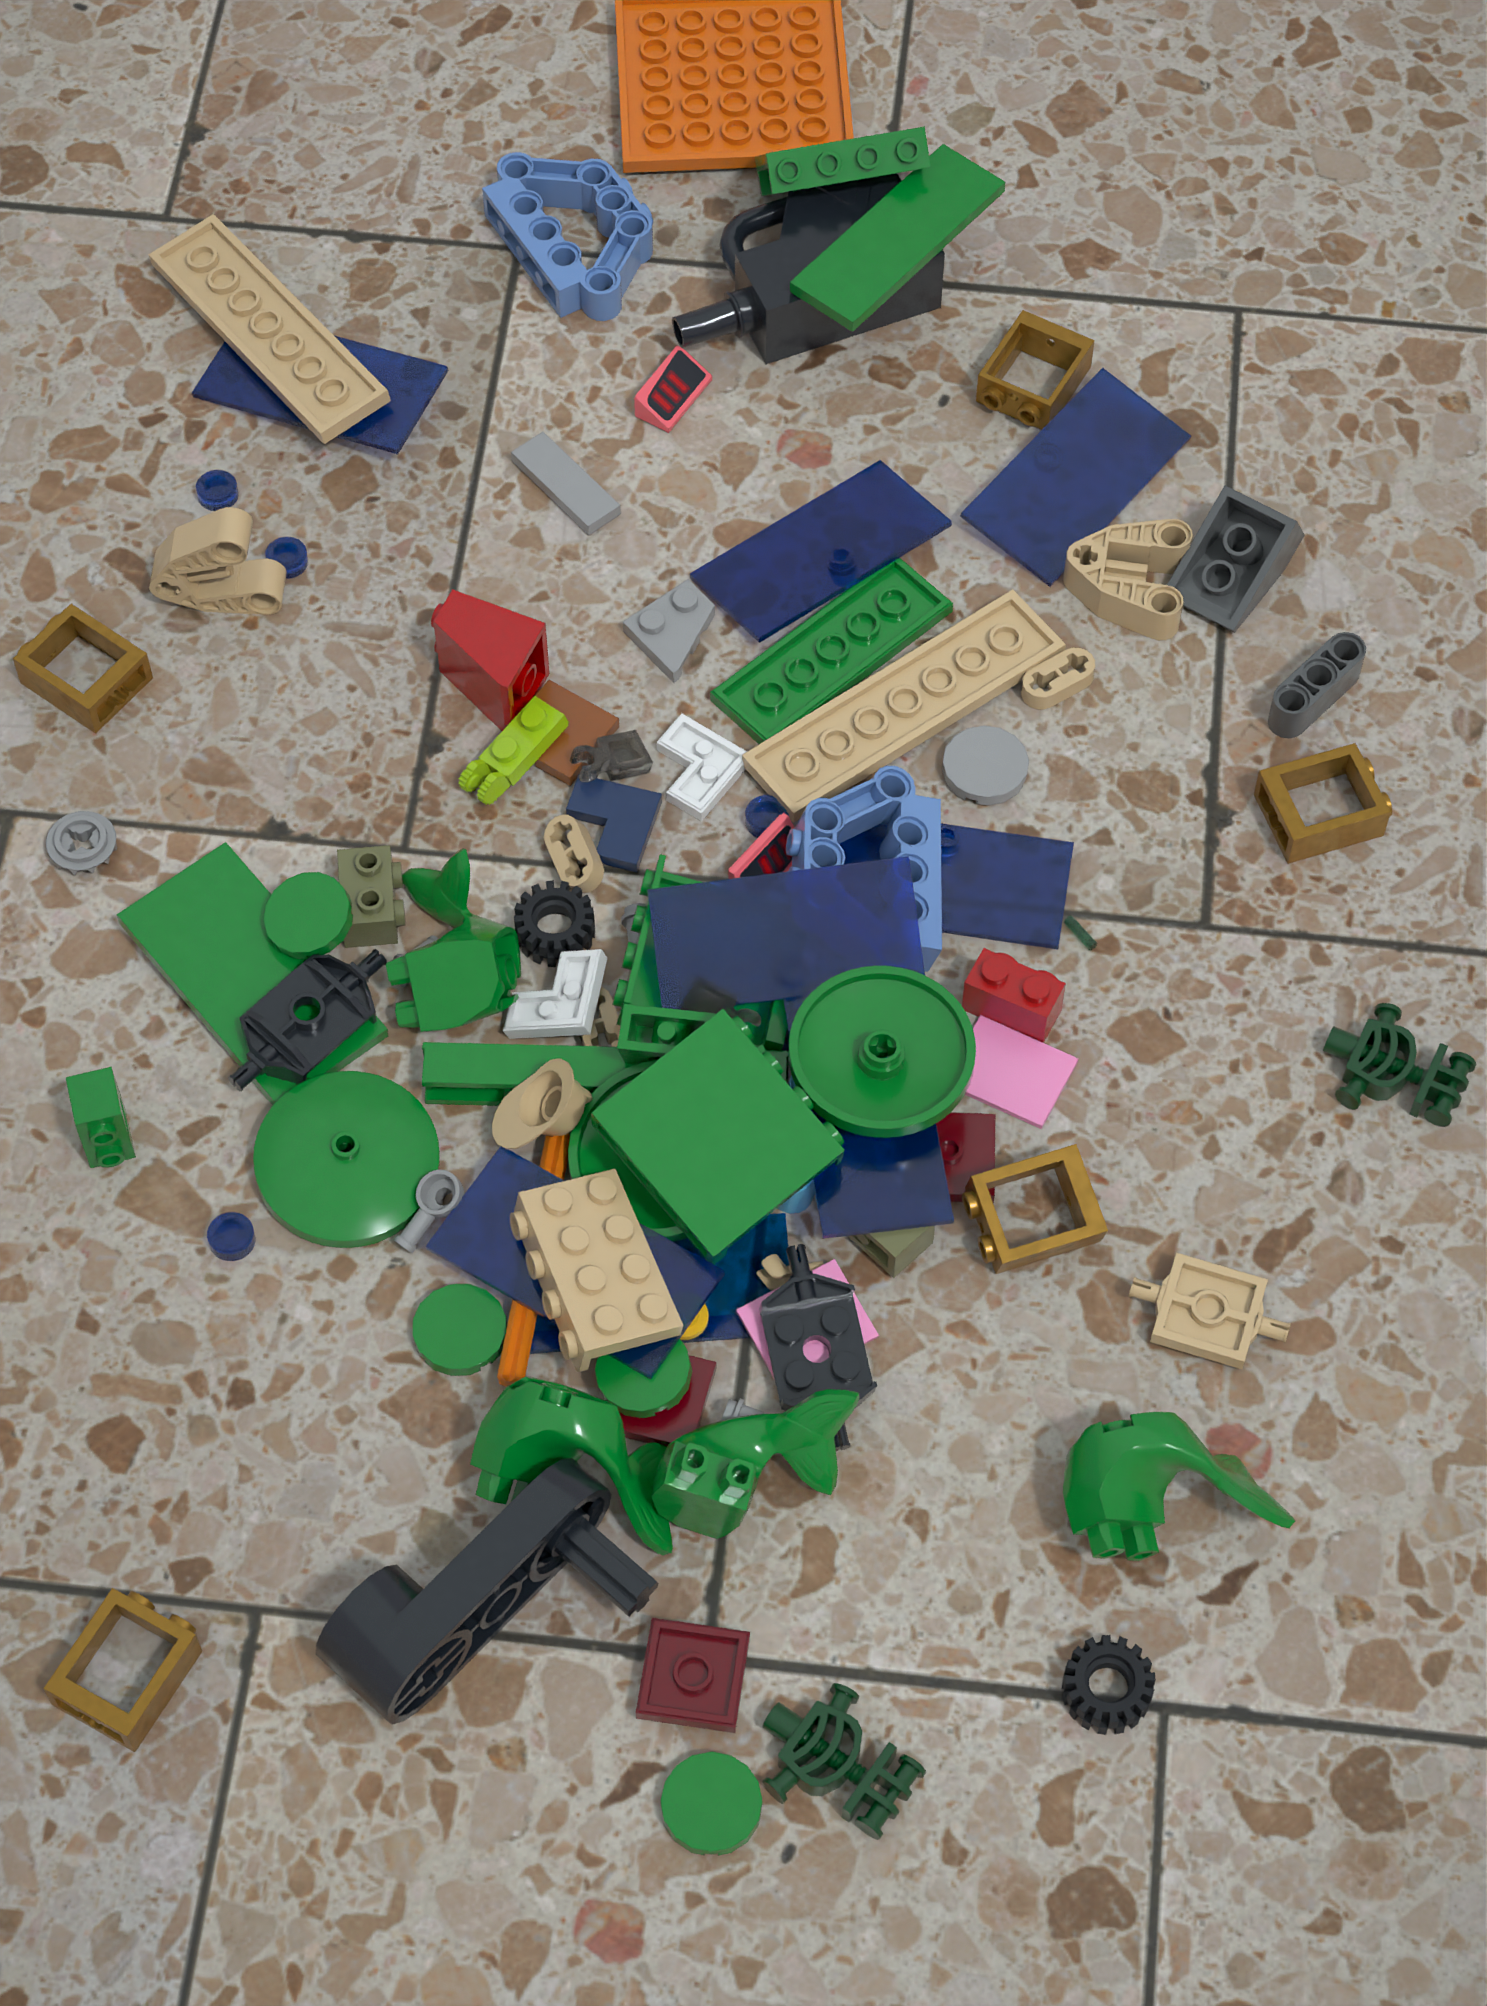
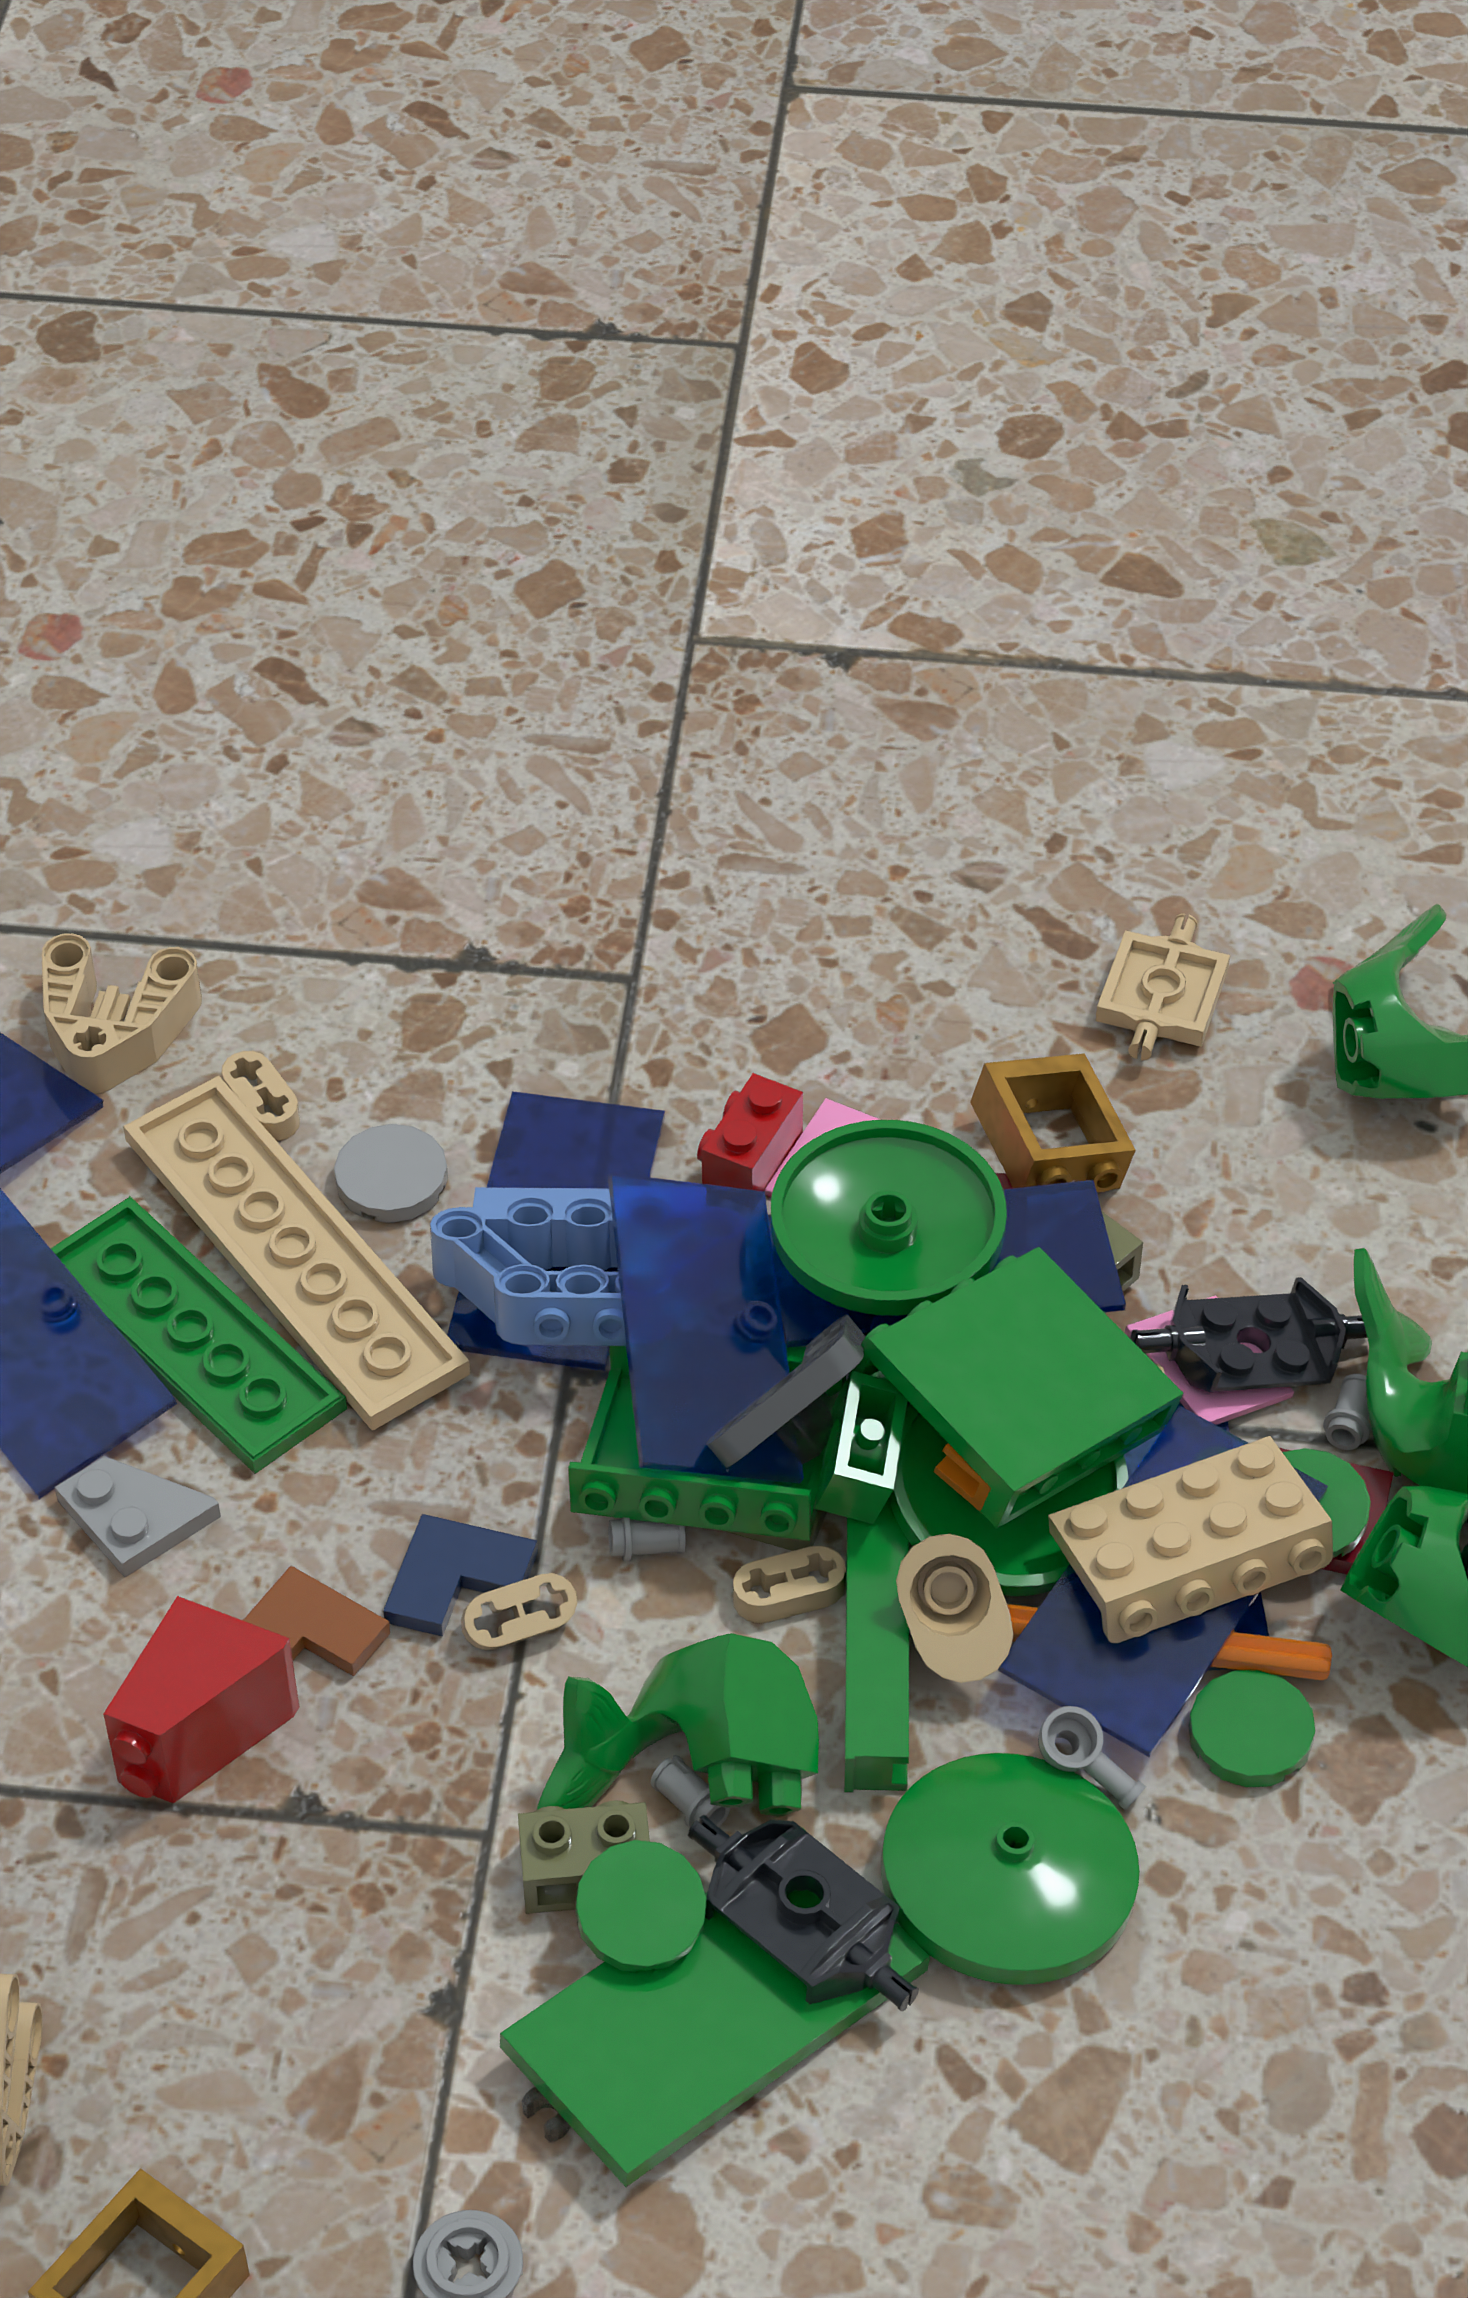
camera: 90 degrees left, 10 degrees down
(100, 1118) = (985, 2159): green brick -> none
(231, 1236) = (1133, 2010): clear blue tile -> none
(513, 751) = (345, 1685): lime hinge -> none
(550, 902) = (622, 1604): black tyre -> none
(567, 1007) = (766, 1597): white tile -> none
(616, 754) = (361, 1562): clear smoke plate -> none
(710, 762) = (365, 1464): white tile -> none
(713, 992) = (824, 1363): none -> dark grey beam
(761, 813) = (459, 1404): clear blue tile -> none
(767, 852) = (535, 1403): slope -> none
(1080, 932) = (645, 1090): clear green piece -> none
(1235, 558) = (104, 896): dark grey slope -> none
(1285, 822) = (461, 892): pearl gold window -> none
(1316, 685) = (301, 846): dark grey beam -> none
(1436, 1084) = (834, 817): dark green piece -> none

